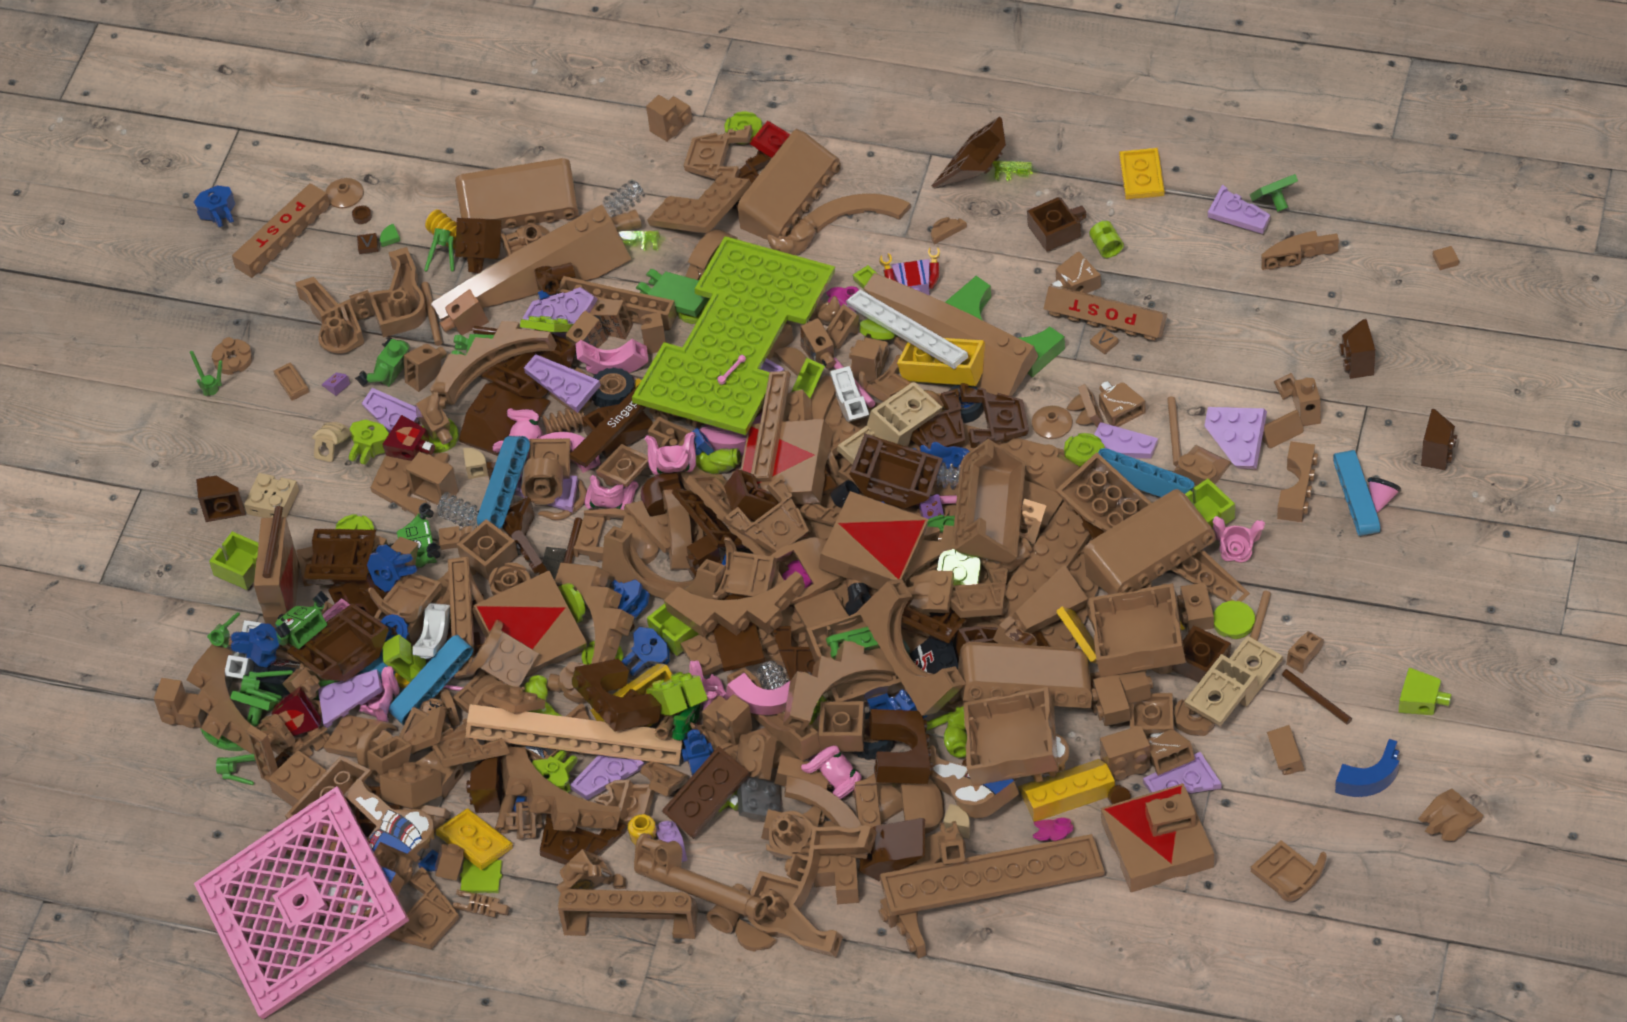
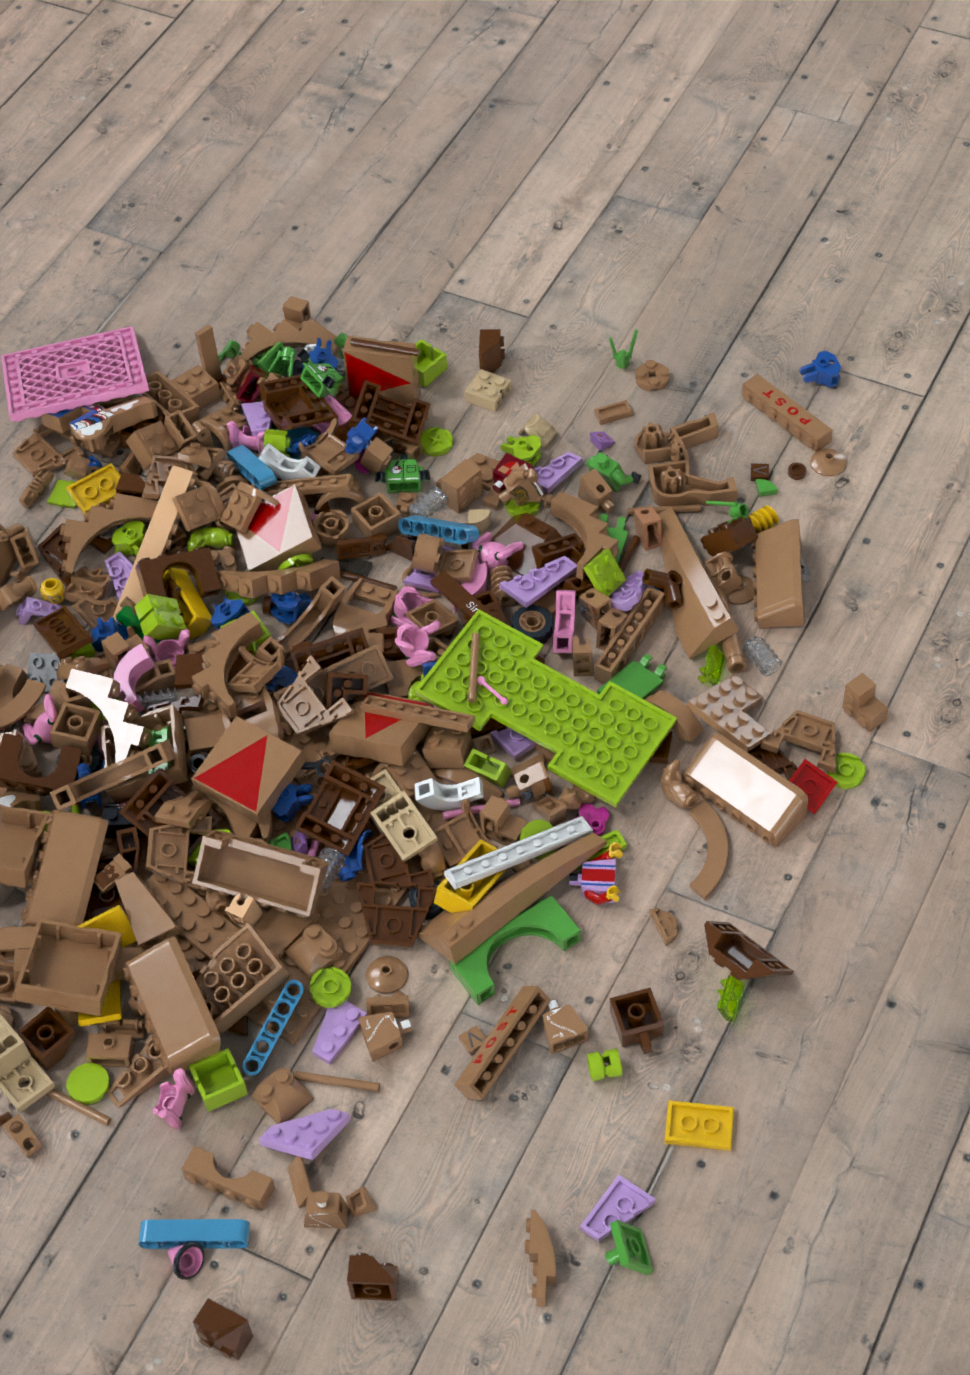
camera: 100 degrees right, 0 degrees up
(708, 386) = (473, 667): none -> medium nougat bar

